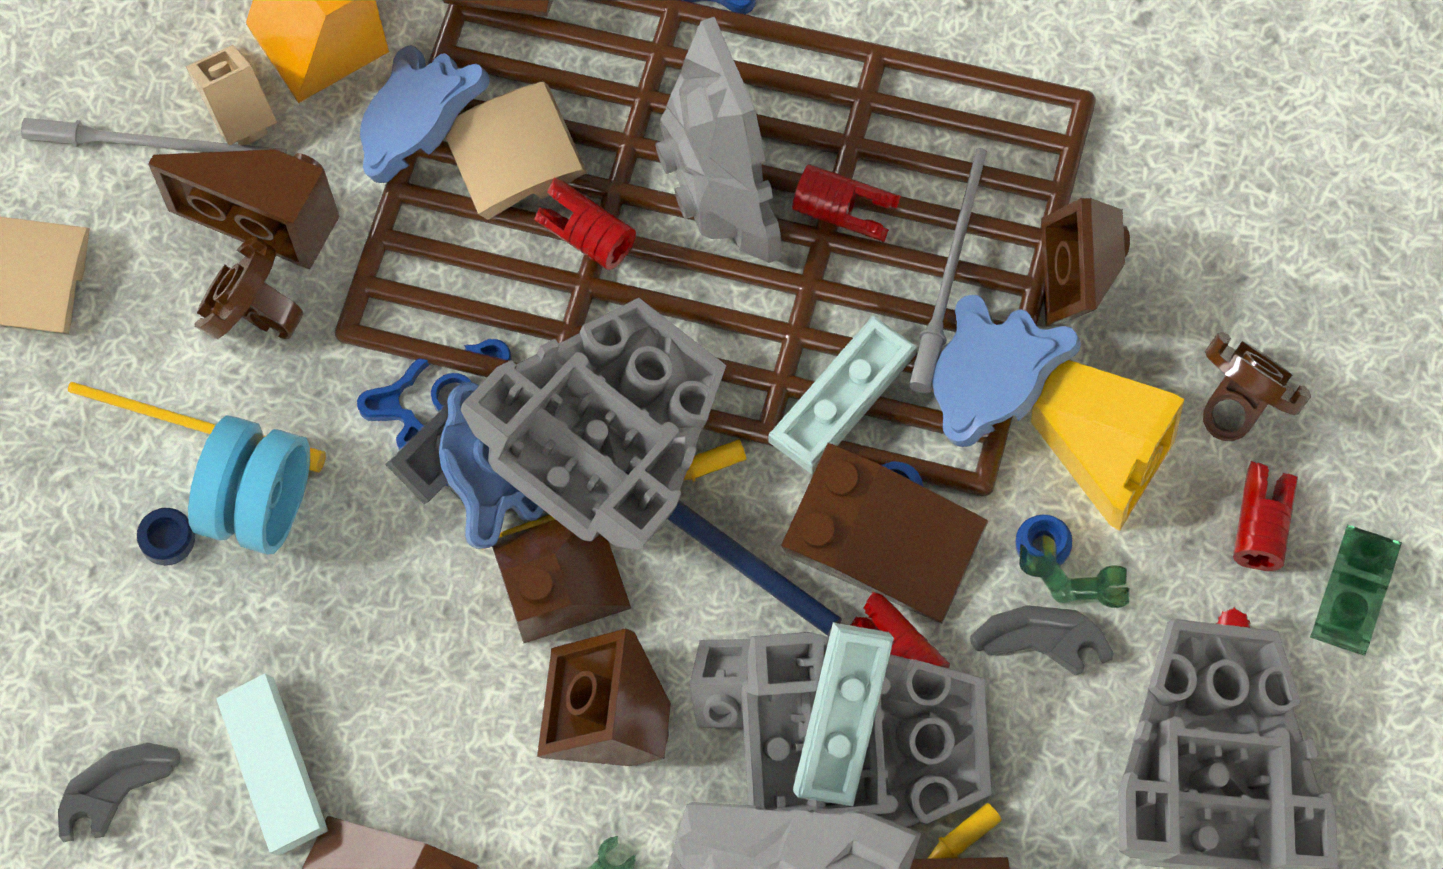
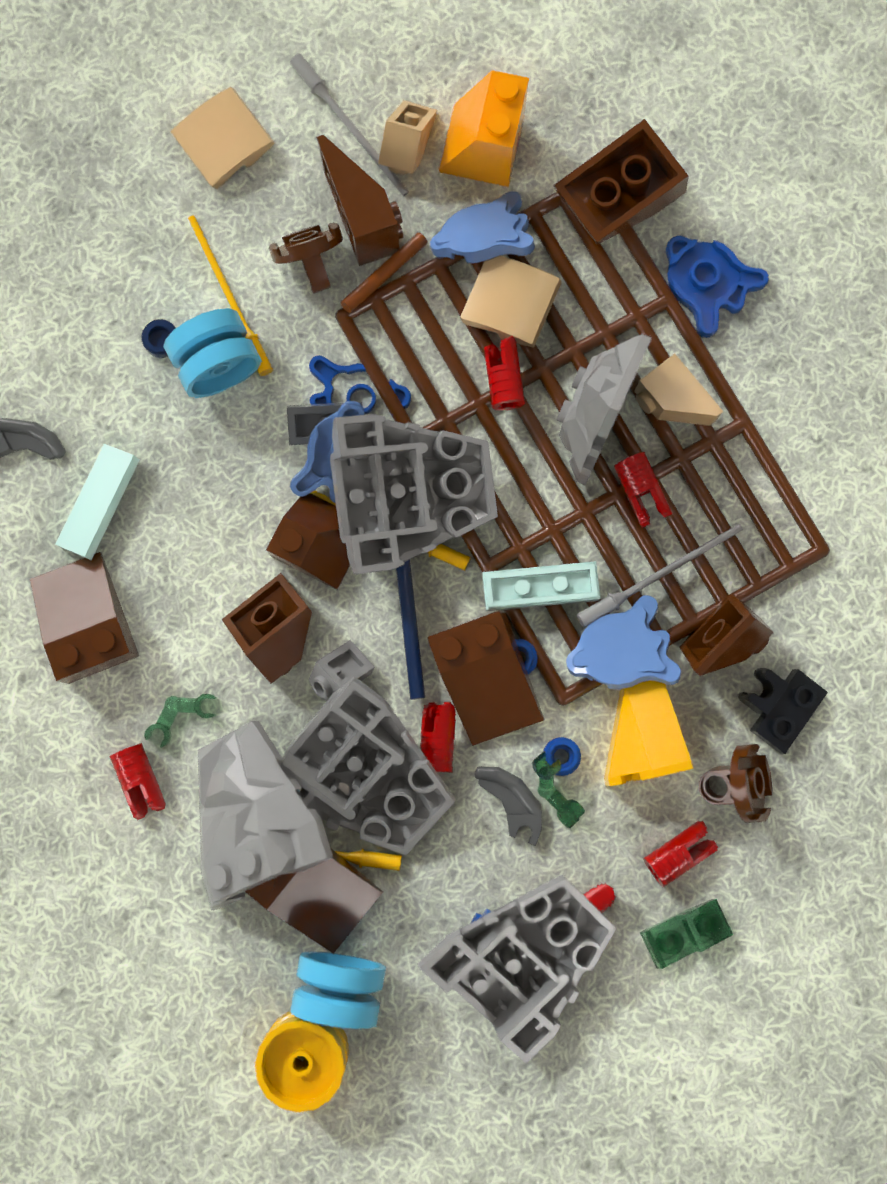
camera: 40 degrees right, 15 degrees up
(346, 248) = (384, 272): none -> dark orange bar
(789, 80) = (676, 395): none -> tan slope
(843, 714) = (364, 755): light aqua tile -> none
(1207, 278) = (782, 706): none -> black plate

